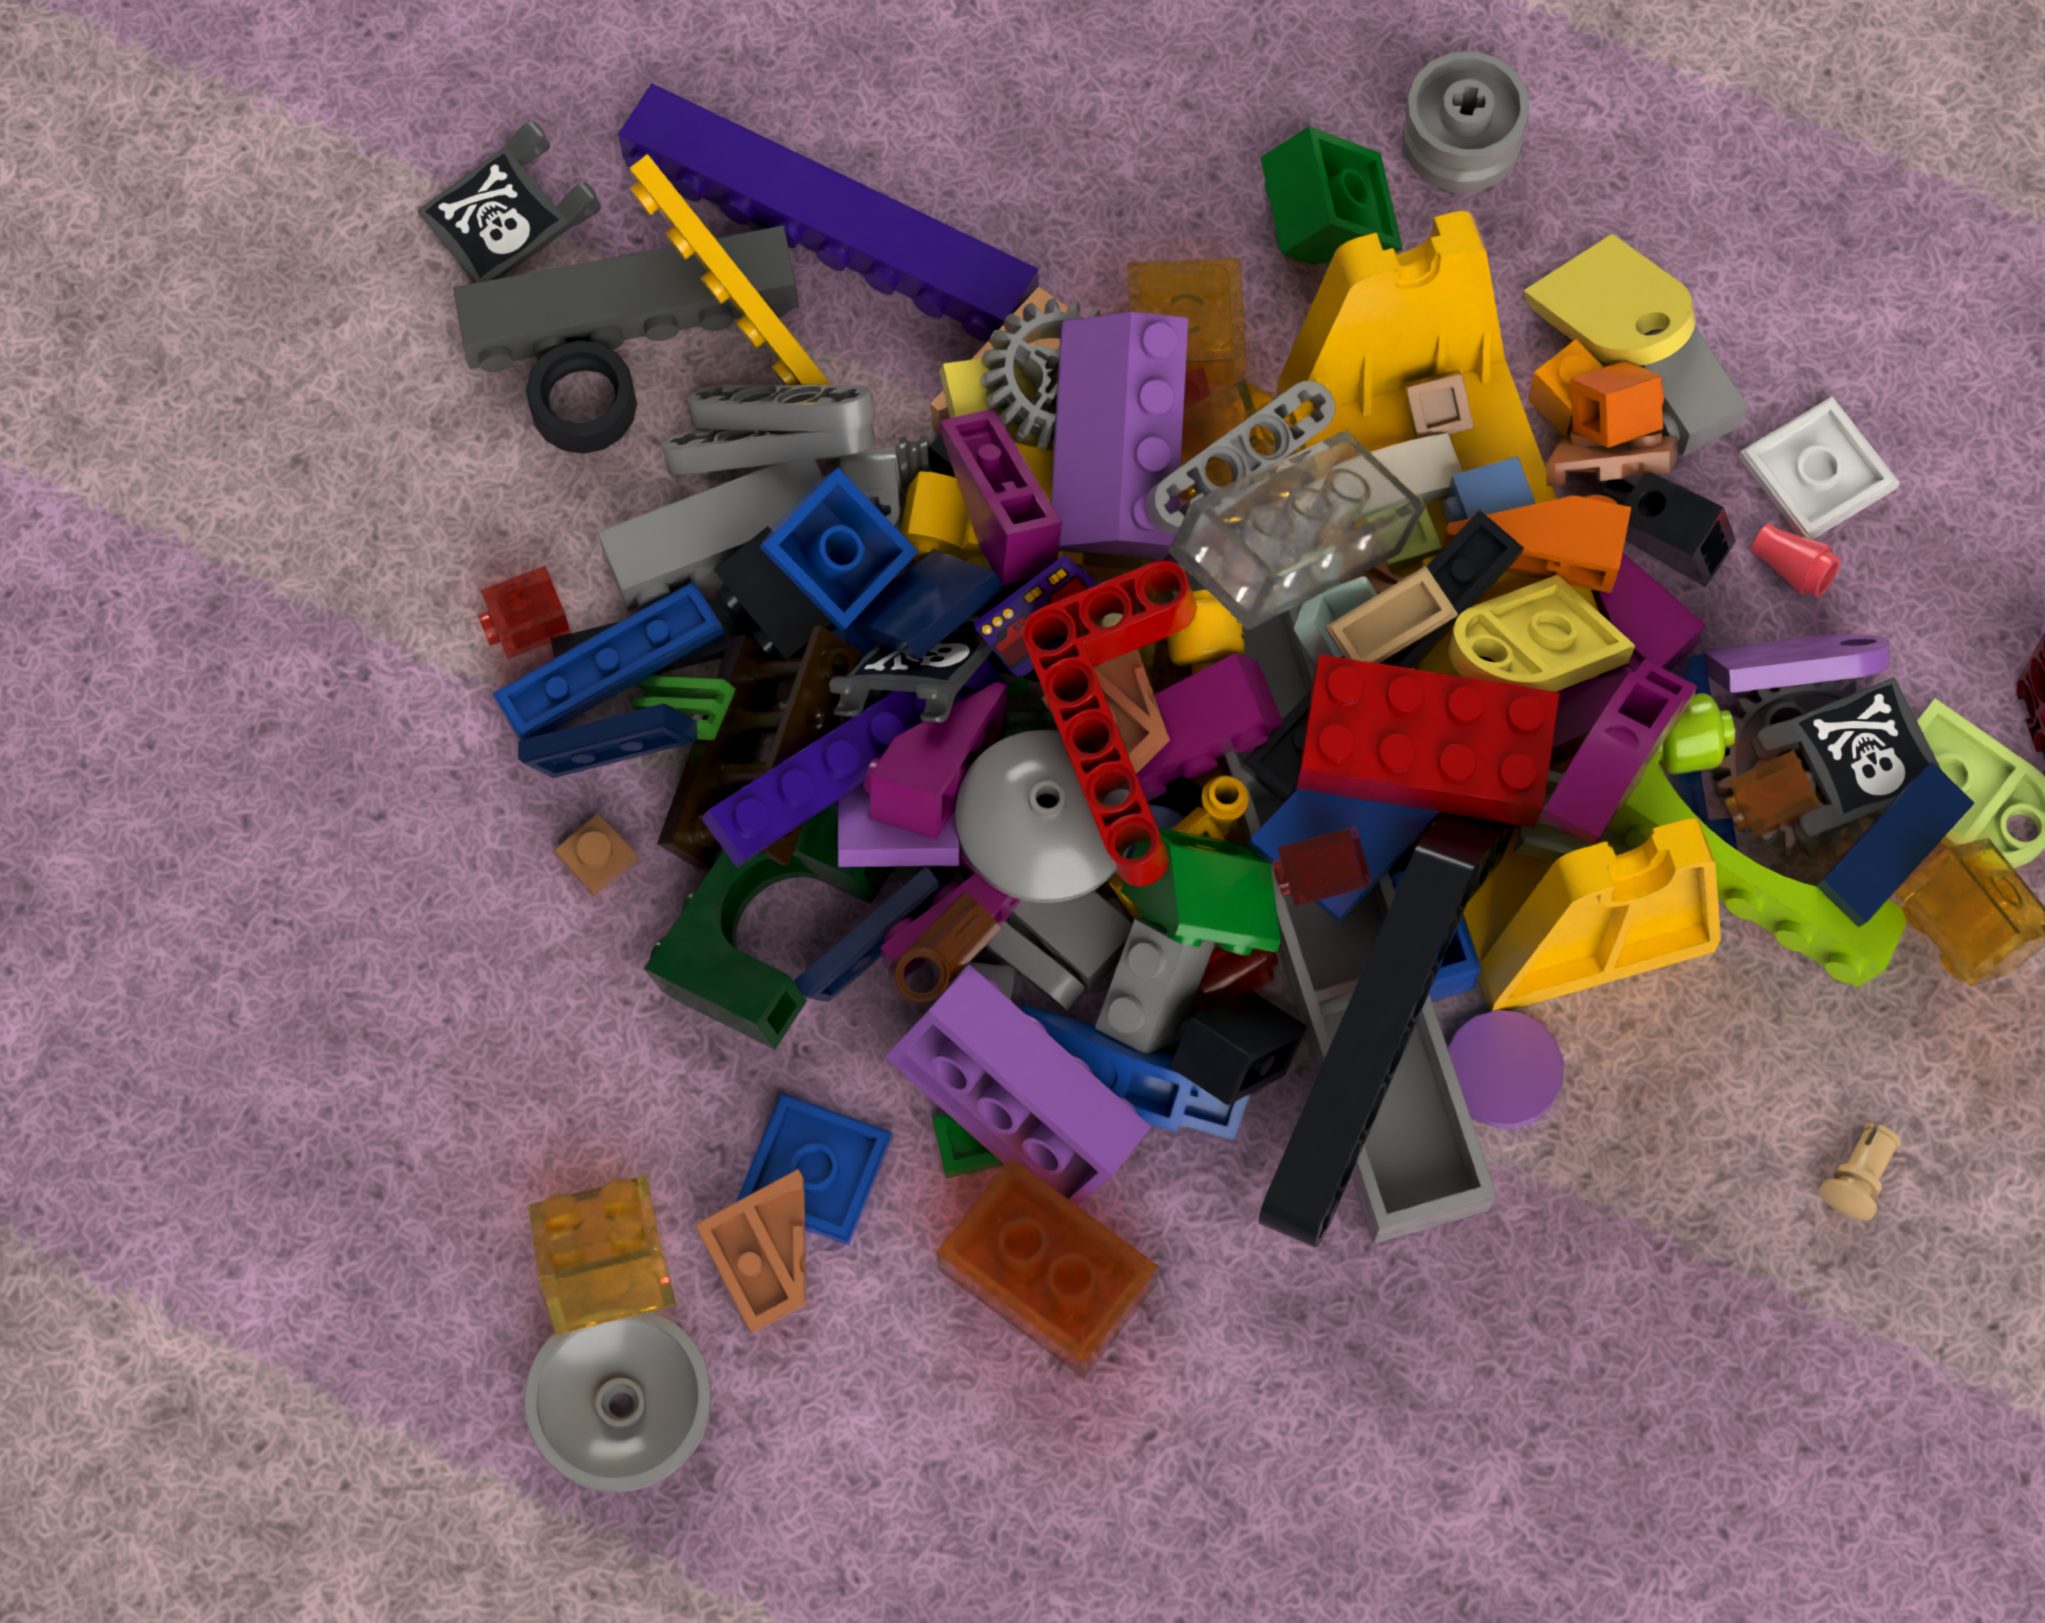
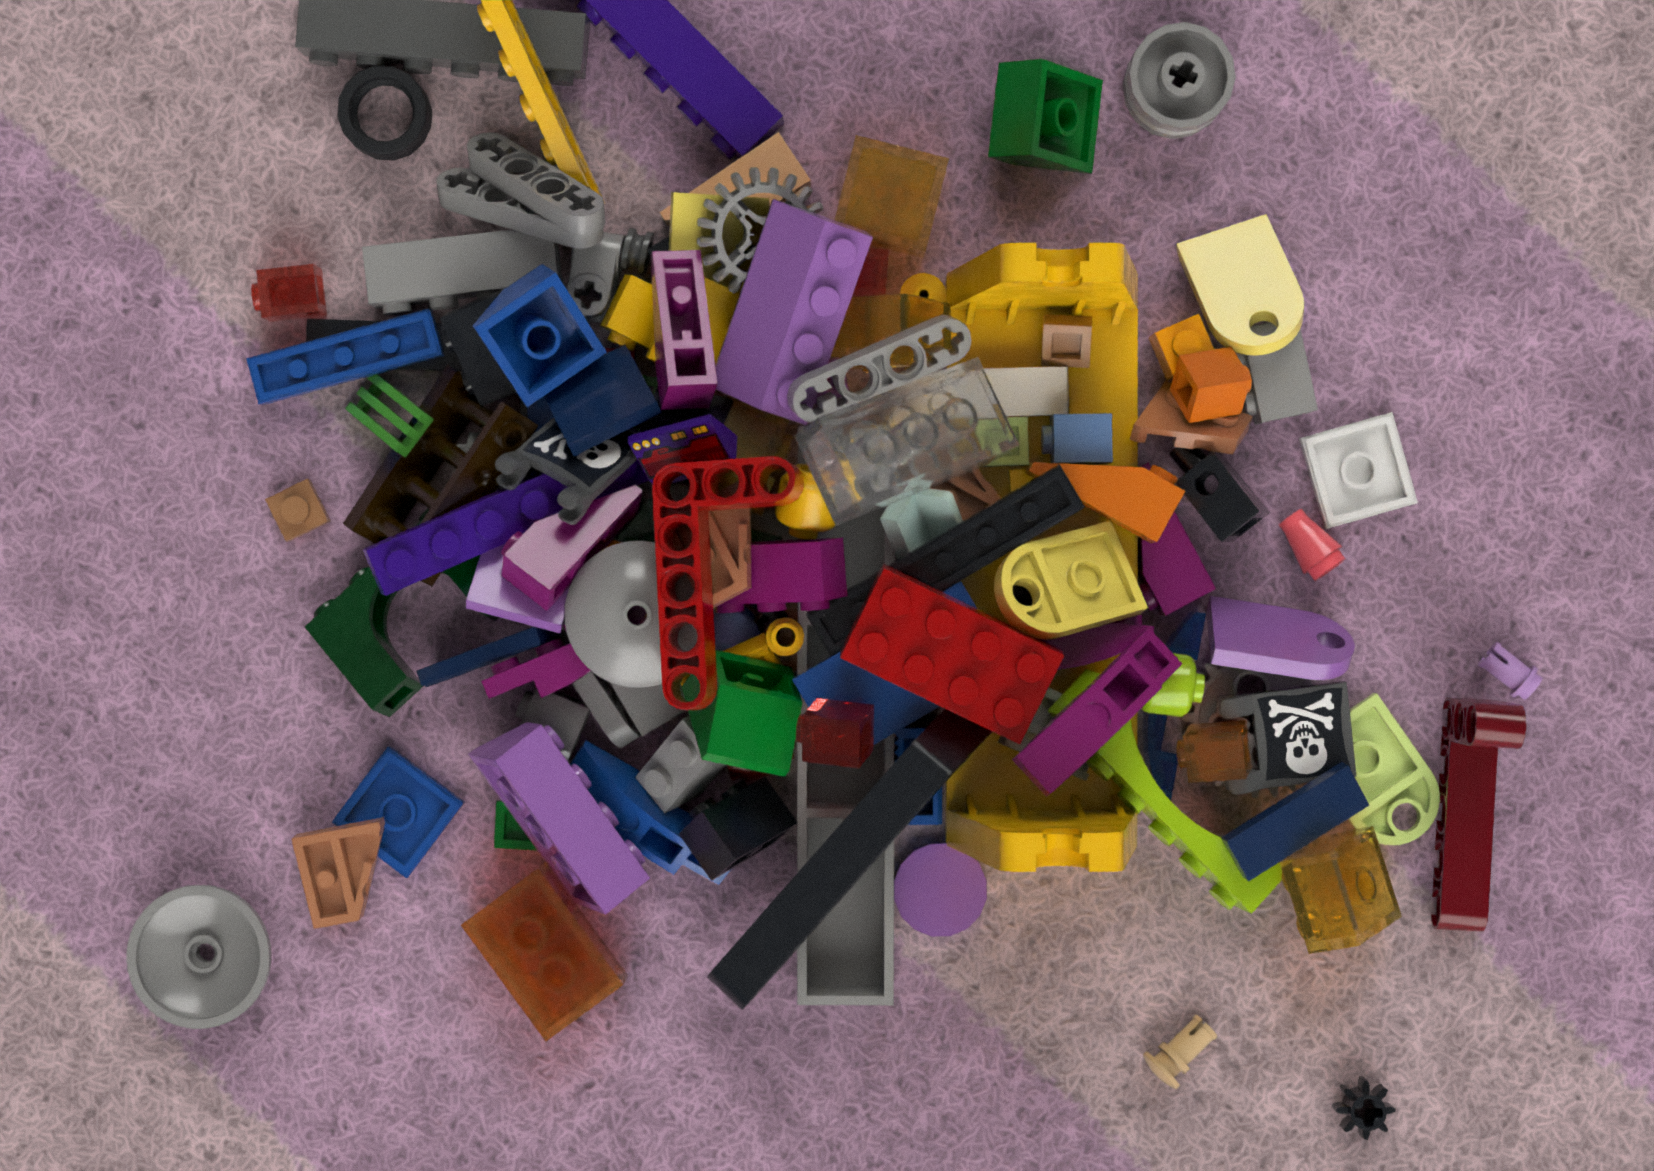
camera: 15 degrees right, 20 degrees up
(601, 1254) = (212, 846): clear yellow brick -> none
(608, 740) = (322, 433): dark blue tile -> none
(946, 947) = (526, 705): reddish brown piece -> none
(1392, 619) = (956, 542): tan tile -> none

